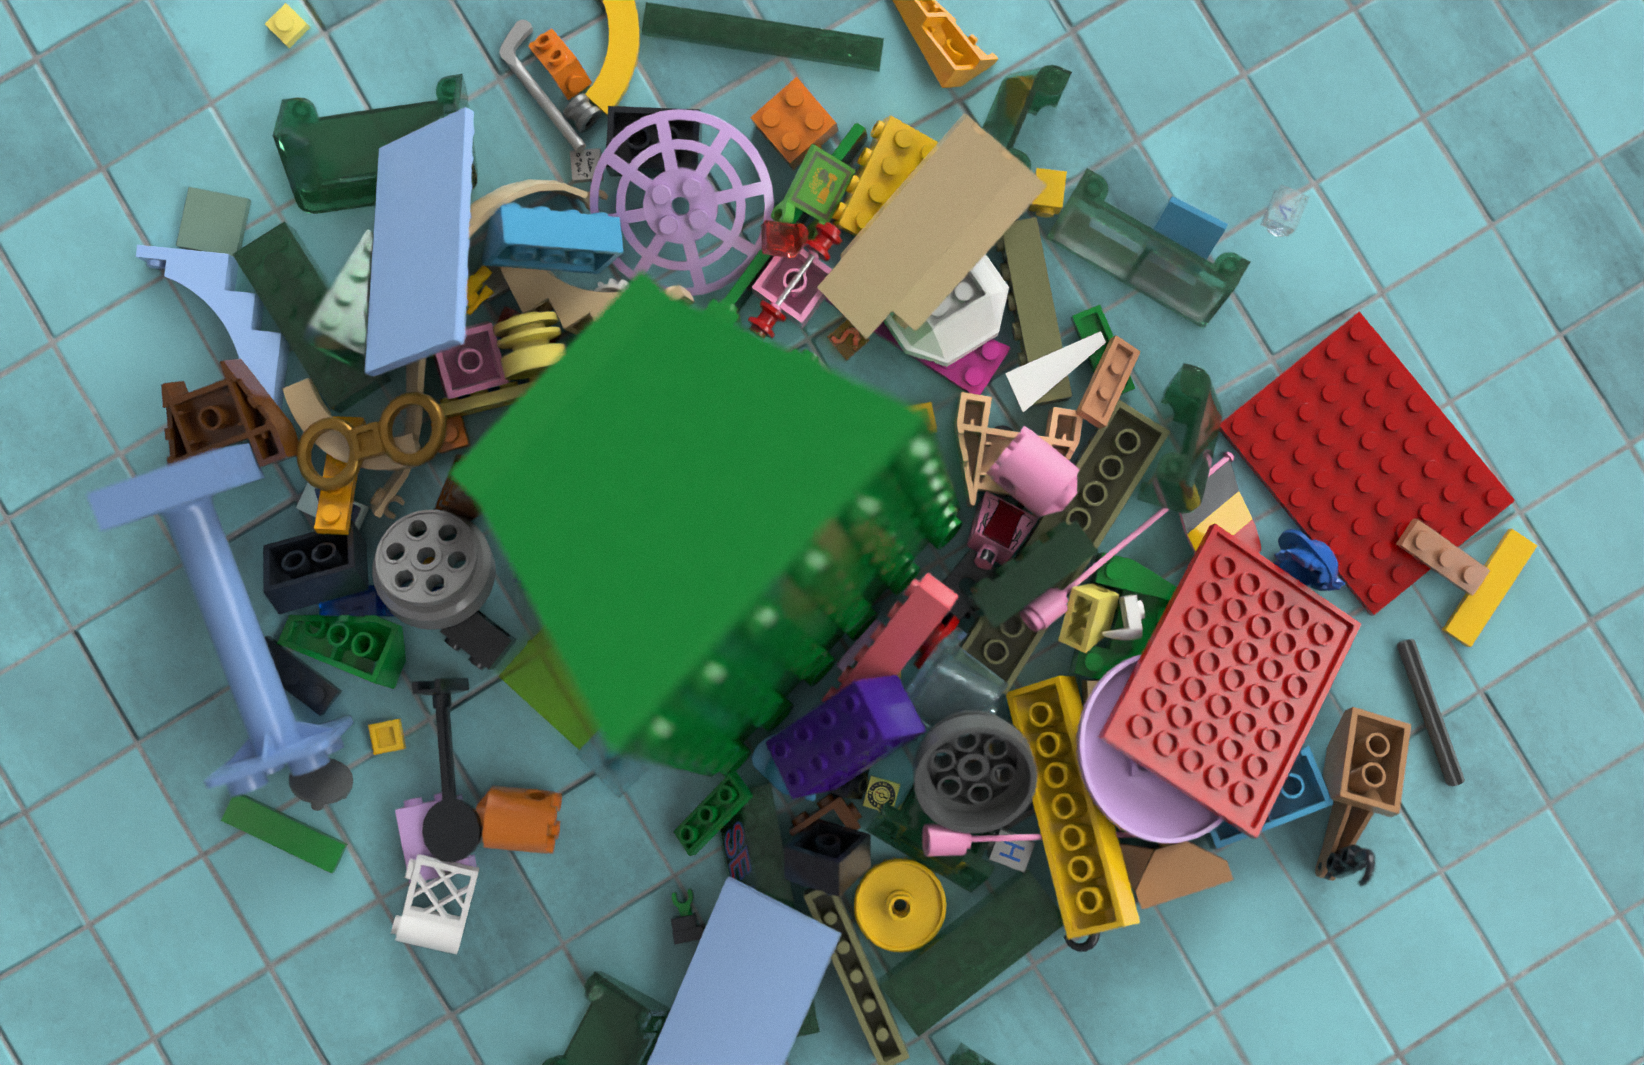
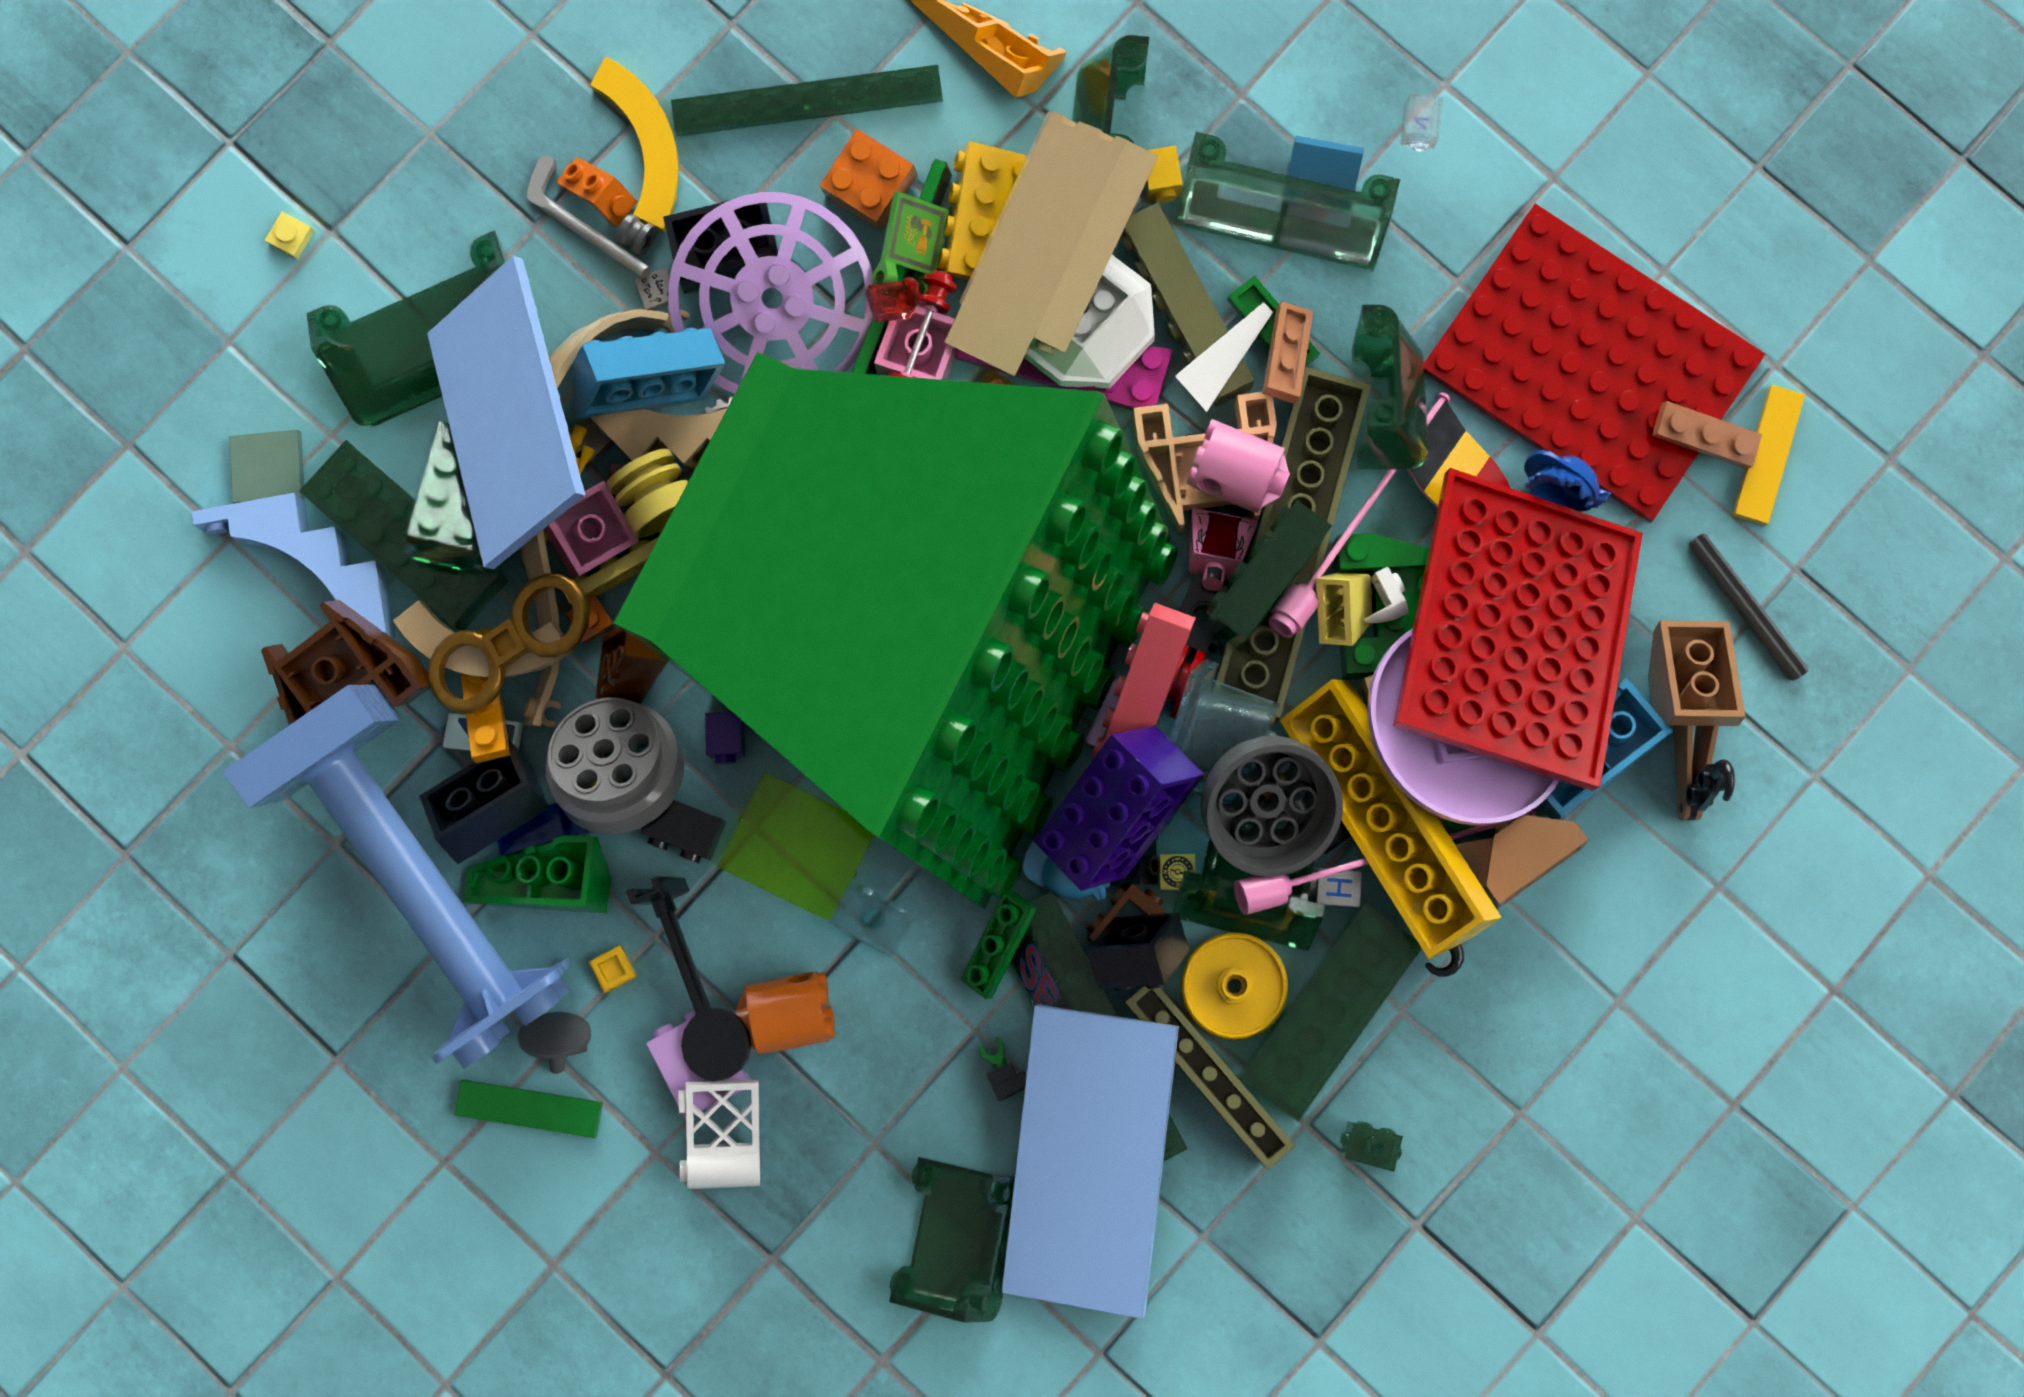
camera: 10 degrees left, 5 degrees down
(301, 679) = (509, 937): black plate -> none

